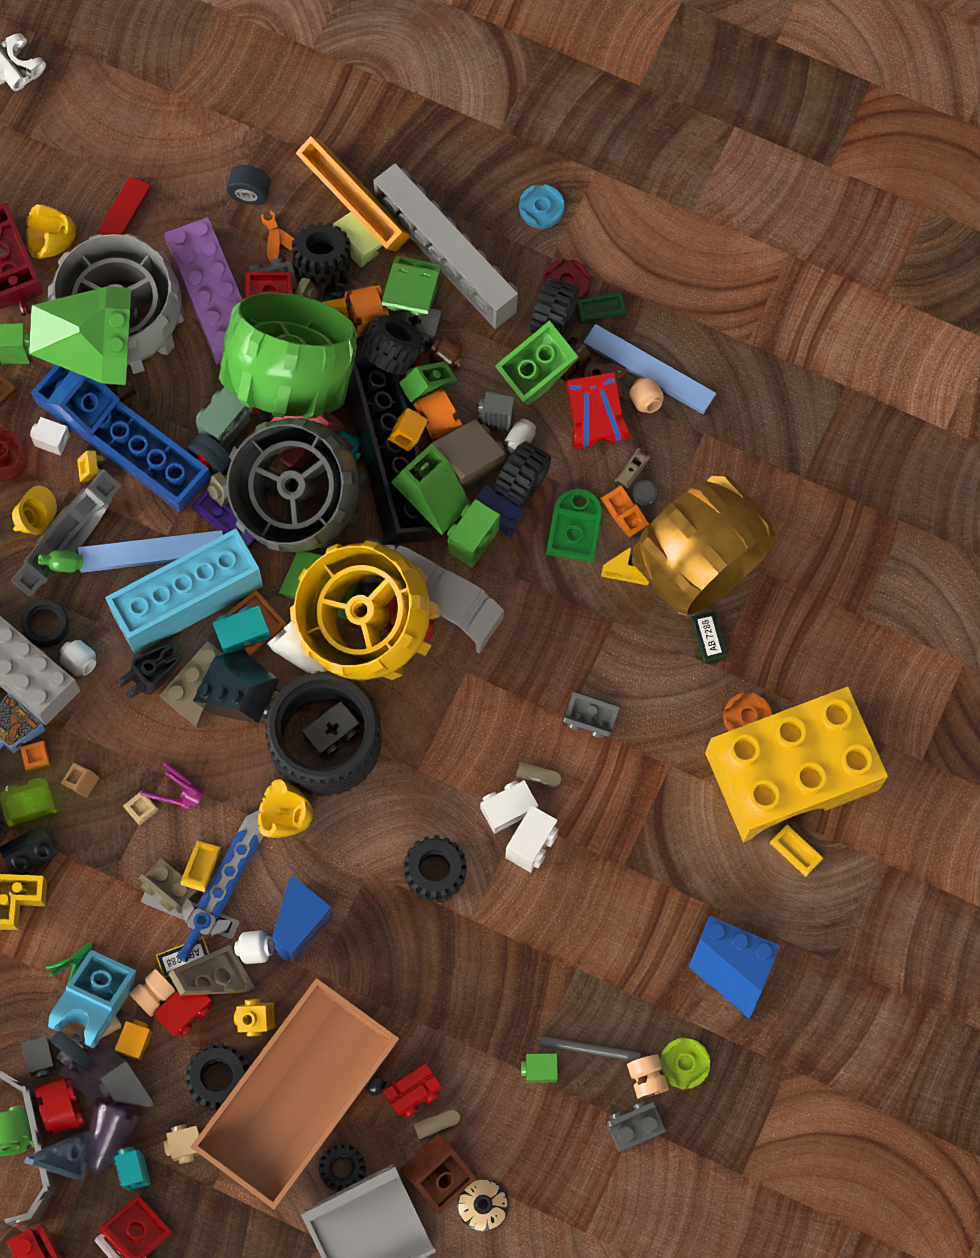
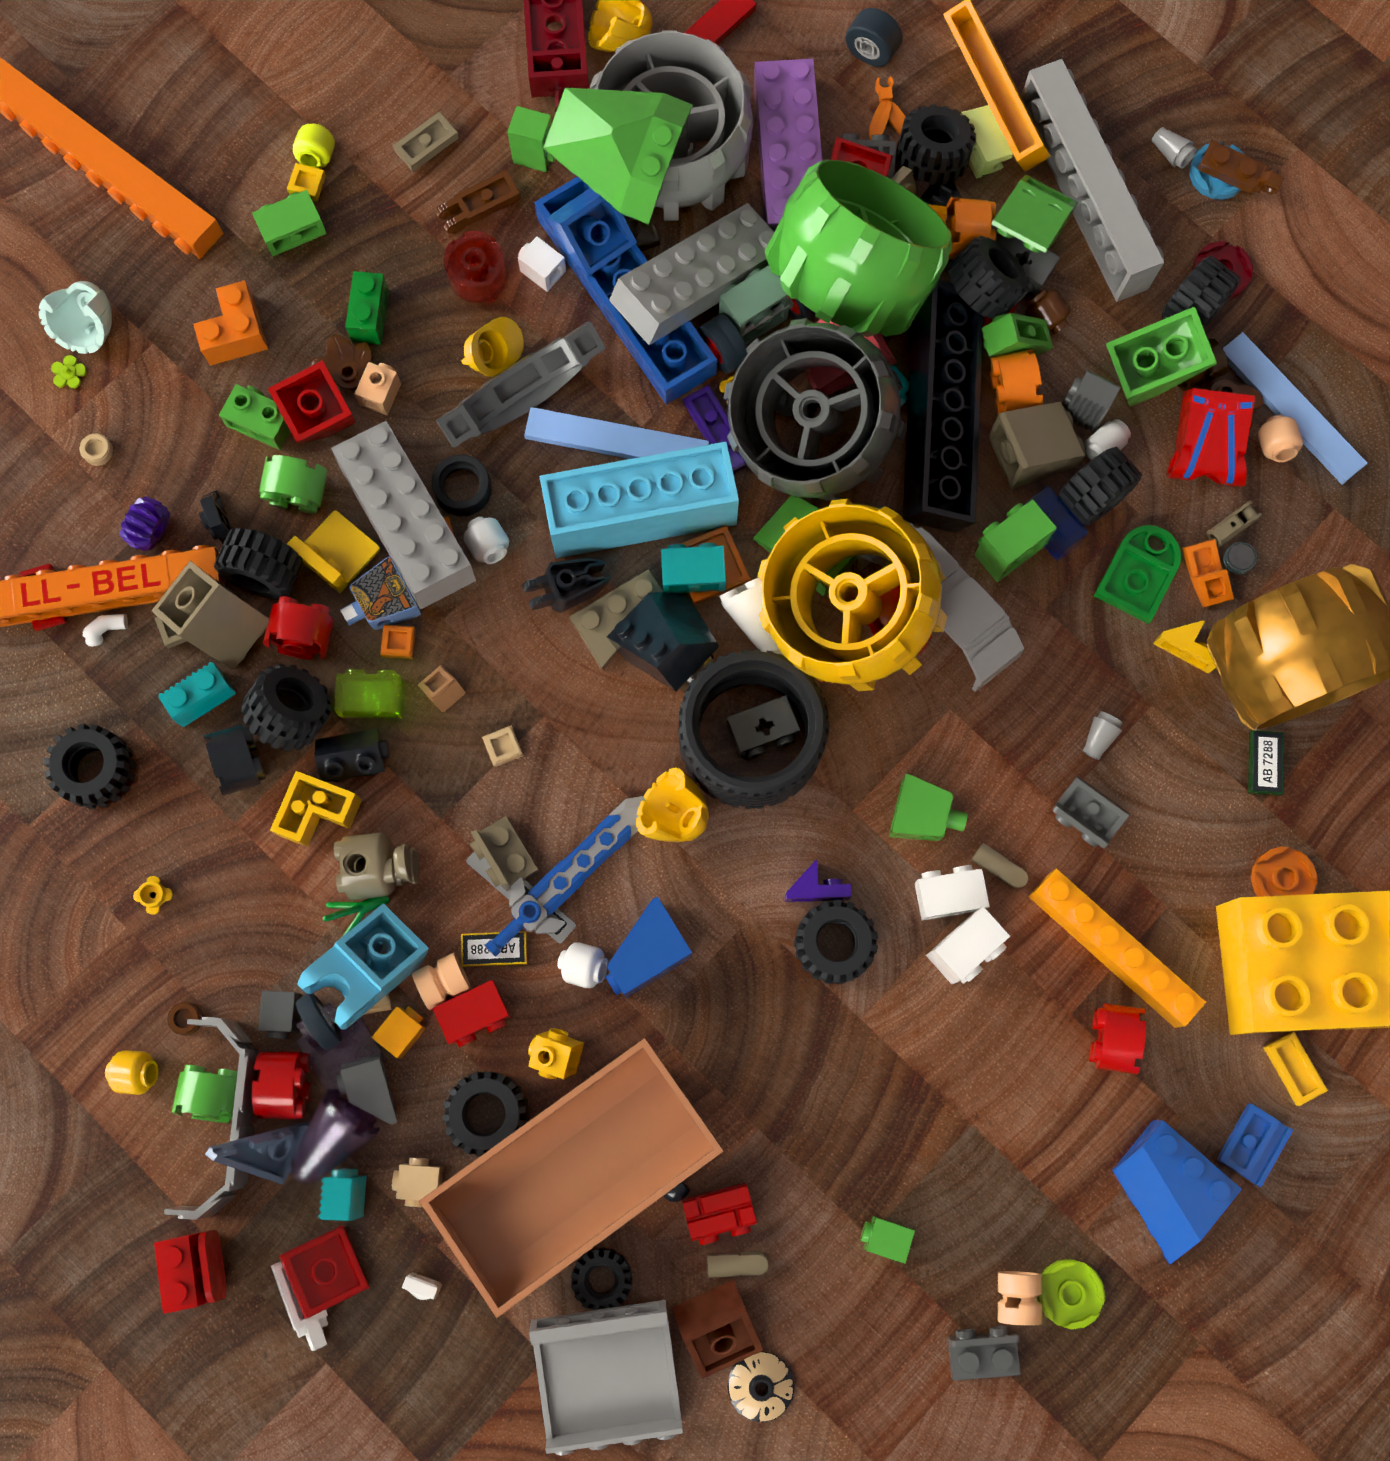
camera: 20 degrees right, 5 degrees up
(62, 561) = (505, 416): bright green plant -> none
(82, 925) = (383, 868): none -> dark tan piece
(88, 465) = (575, 311): yellow tile -> none
(170, 410) = (692, 274): none -> light grey brick
(191, 793) = (569, 747): magenta plant -> none
(200, 866) = (550, 842): yellow tile -> none
(211, 1217) = (421, 1286): none -> white tile
(212, 974) = (520, 984): dark tan wing -> none
(216, 488) = (717, 388): dark tan plate -> none
(403, 838) = (807, 888): none -> dark purple slope
(408, 429) = (975, 387): light orange brick -> none
(433, 488) = (983, 469): bright green slope -> none
(470, 753) = (924, 811): none -> bright green torso
(501, 199) = (1175, 148): none -> light grey cone
(554, 203) = (1239, 170): none -> reddish brown hinge
(582, 655) = (1102, 734): none -> light grey cone
(589, 1048) = (957, 1233): dark grey bar -> none
(601, 307) = (1255, 315): dark green tile -> none
(640, 806) = (1117, 949): none -> light orange brick
(661, 869) = (1119, 1038): none -> red brick
(782, 913) = (1254, 1145): none -> blue plate

